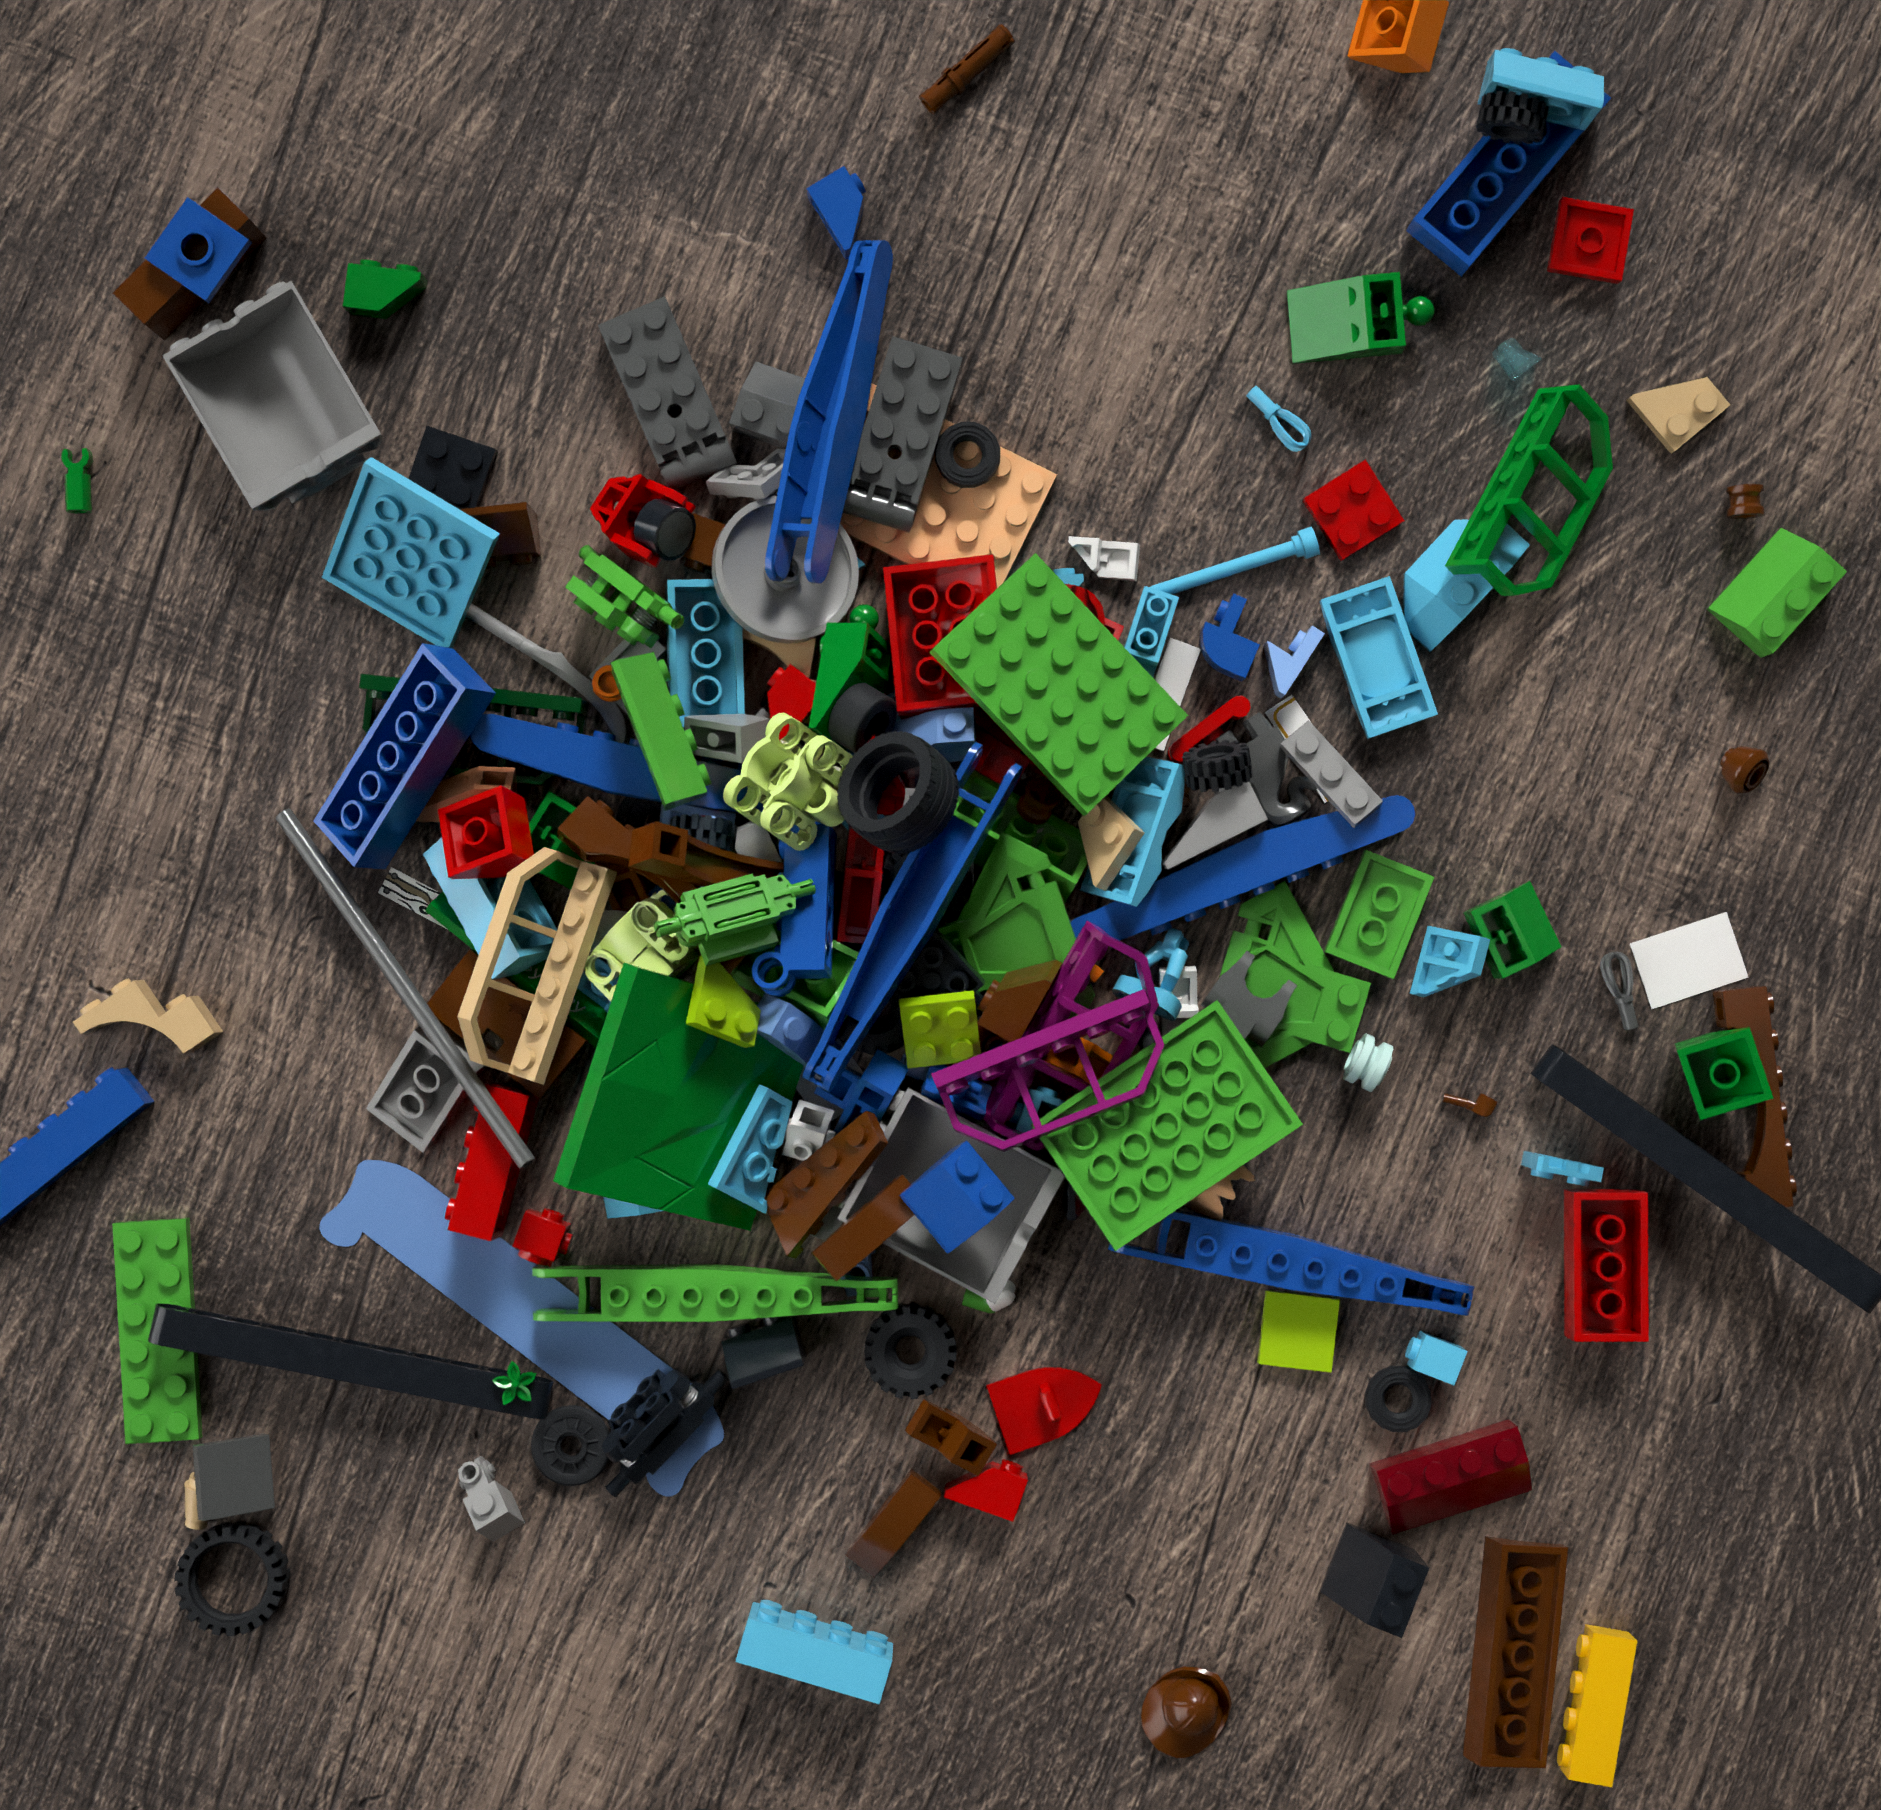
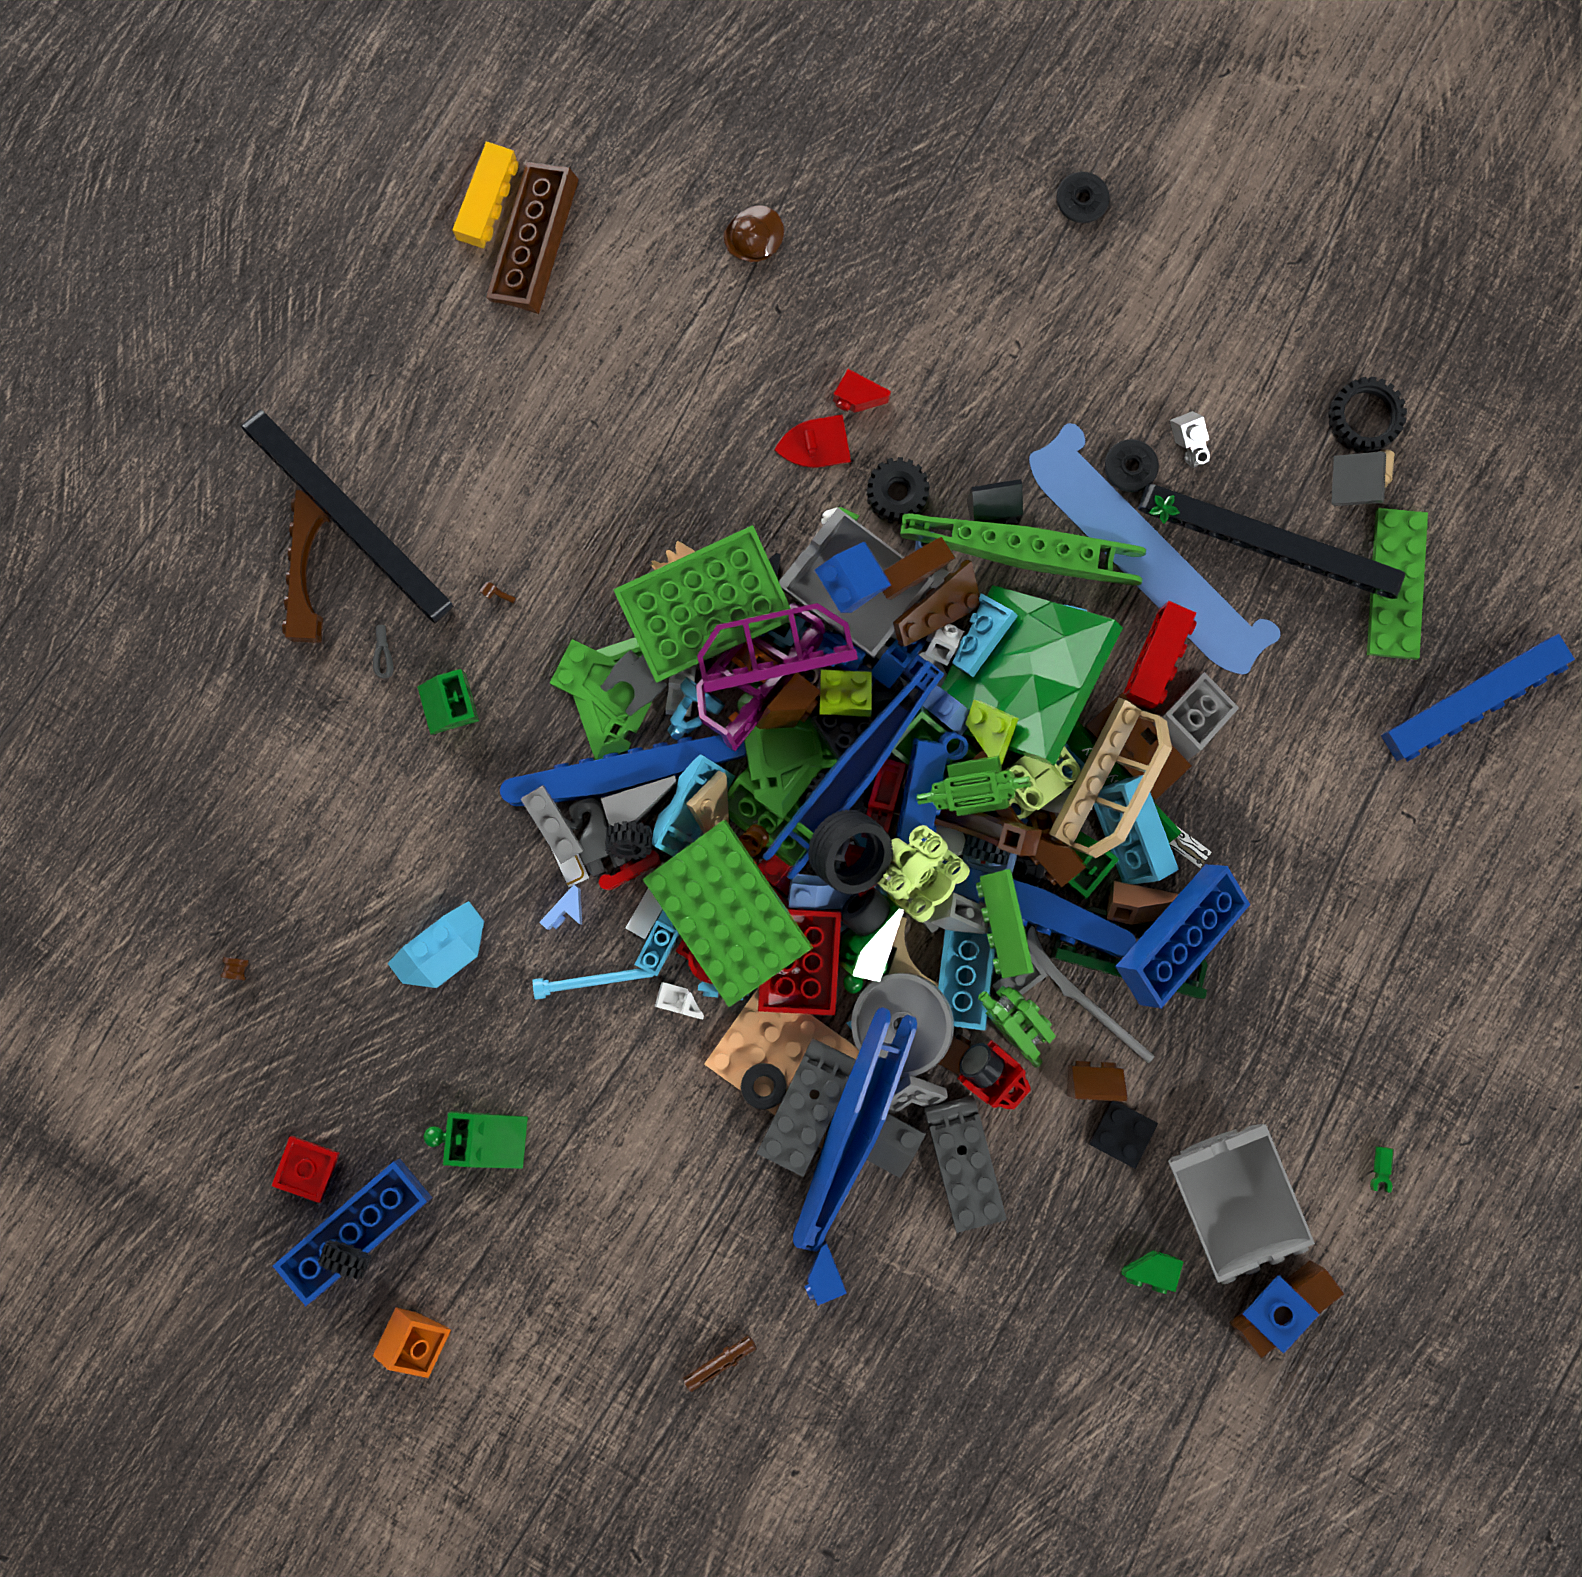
camera: 170 degrees left, 5 degrees down
(185, 1022) = (1354, 781): tan arch -> none
(405, 989) = (1203, 780): dark grey piece -> none
(409, 554) = (1160, 1077): medium azure plate -> none
(485, 834) = (1134, 872): red slope -> none
(543, 1236) = (1131, 603): red brick -> none
(605, 685) = (1039, 967): orange plate -> none
(656, 1423) = (1073, 469): black piece -> none
(791, 694) = (912, 935): red slope -> none
(816, 1651) = (990, 306): medium azure brick -> none
(893, 1523) = (925, 382): reddish brown slope -> none
(951, 1435) = (877, 429): reddish brown brick -> none
(1224, 649) = (612, 928): blue brick -> none
(1272, 410) = (548, 1085): medium azure piece -> none
(1297, 1264) = (628, 503): blue piece -> none
(1298, 1331) = (638, 463): lime tile -> none
(1353, 510) = (504, 1006): red plate -> none
(1368, 1062) = (561, 629): light aqua wheel -> none
(1375, 1579) = (616, 294): black slope -> none
(1377, 657) = (505, 901): medium azure slope -> none
(1379, 914) = (536, 727): bright green plate -> none
(1419, 1406) = (575, 395): black tyre -> none
(1435, 1357) = (550, 431): medium azure brick -> none
(1448, 960) = (495, 688): medium azure wing -> none
(1452, 1476) = (553, 355): dark red slope -> none
(1510, 479) = (391, 1008): green plate -> none
(1514, 359) = (373, 1094): clear light blue slope -> none
(1571, 93) = (301, 1271): medium azure slope -> none
(1576, 1172) = (447, 541): medium azure wing -> none
(1606, 1265) = (427, 472): red brick -> none
(1679, 410) = (267, 1040): tan wing -> none
(1689, 960) = (333, 665): white sticker -> none
(1723, 1071) = (325, 584): green slope -> none
(1744, 768) = (271, 786): reddish brown cone -> none
(1776, 591) = (225, 903): bright green slope -> none

